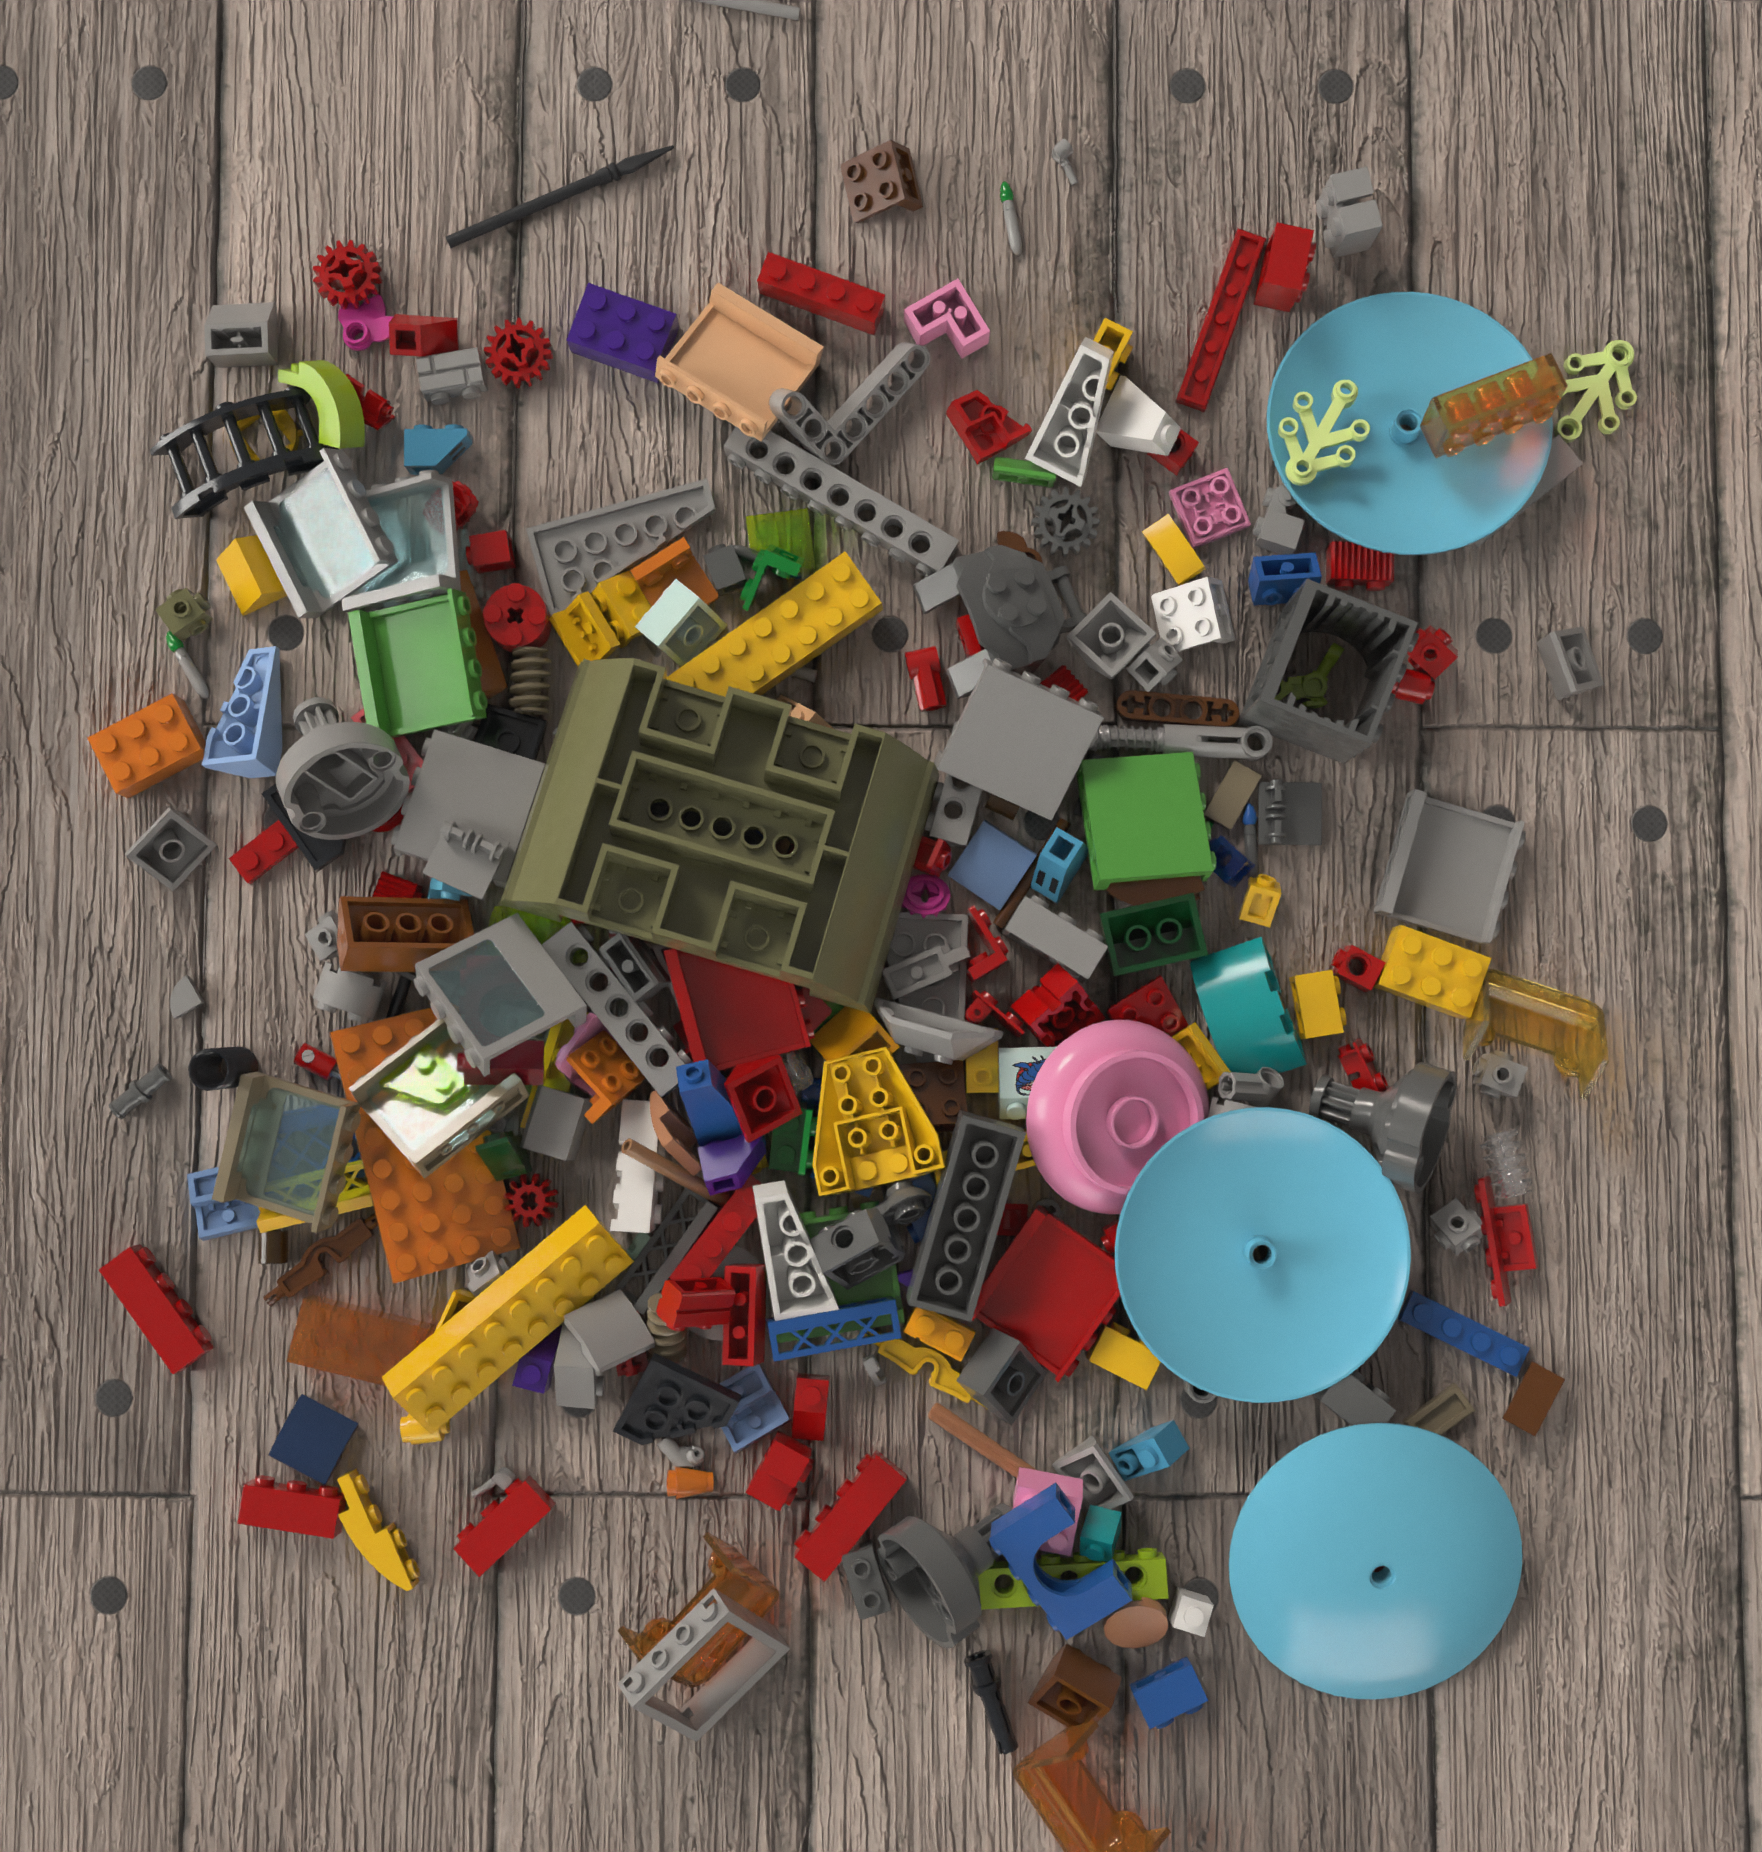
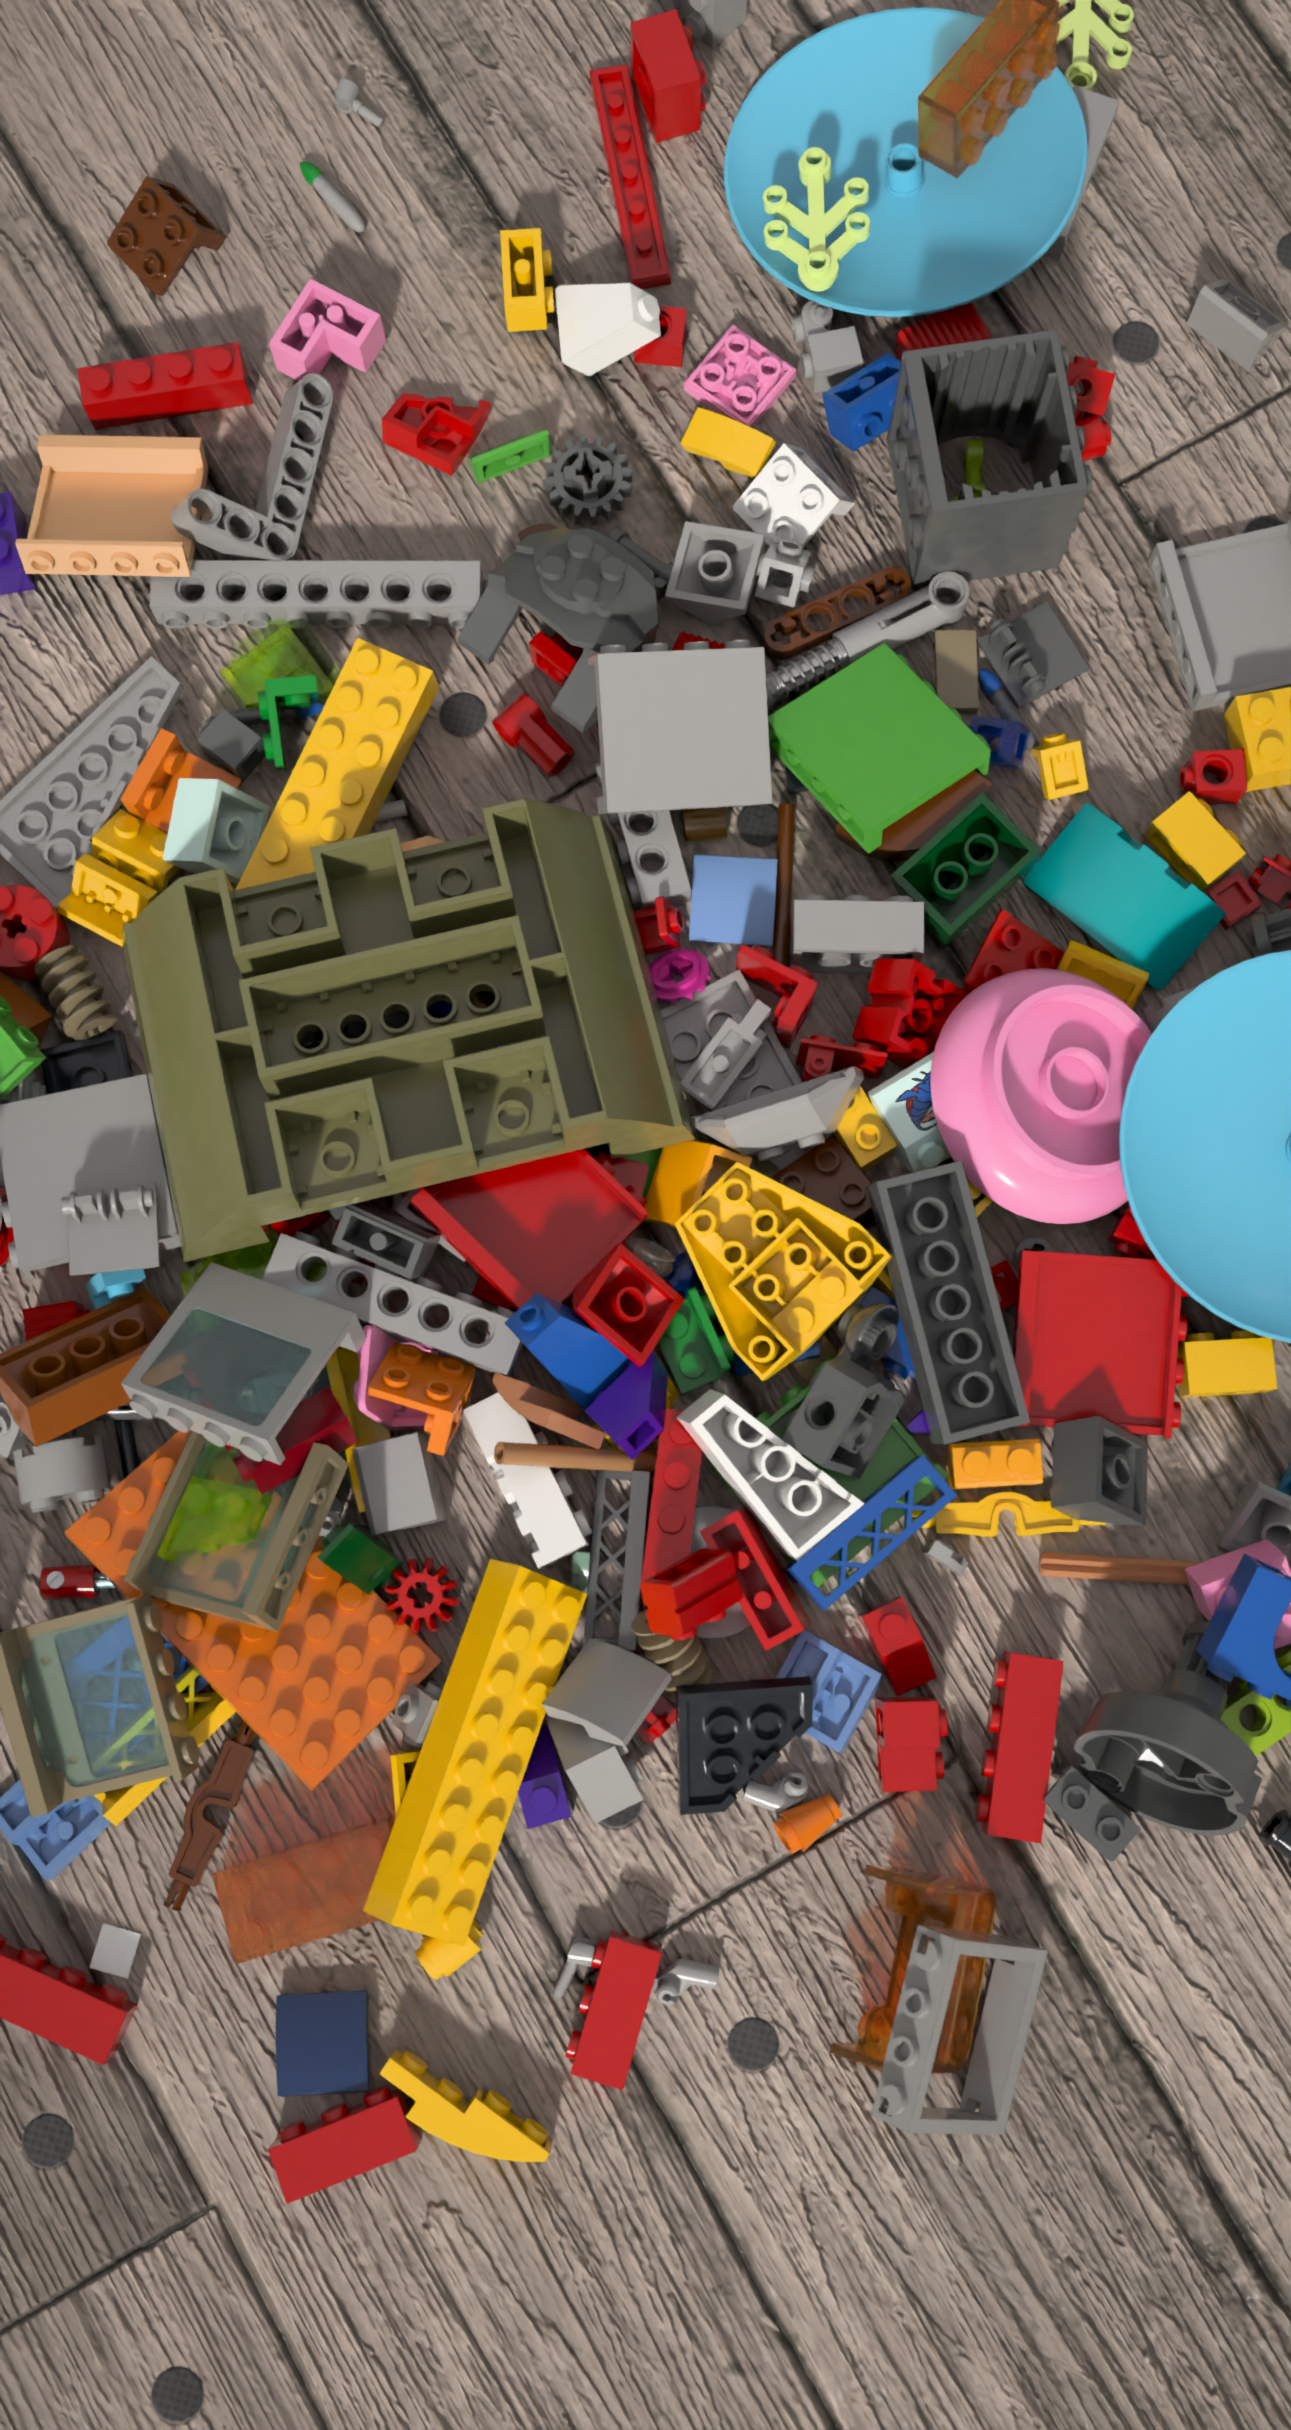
camera: 25 degrees left, 5 degrees down
(218, 1307) = (115, 1950): none -> white sticker
(273, 1247) = (141, 1835): dark brown beam -> none
(555, 1529) = (682, 1975): none -> light grey arm
(1058, 864) = (808, 851): dark azure slope -> none
(1072, 420) = (530, 362): white wedge -> none
(1254, 1088) = (1179, 973): light grey piece -> none
(1320, 1055) = (1234, 898): none -> red tile

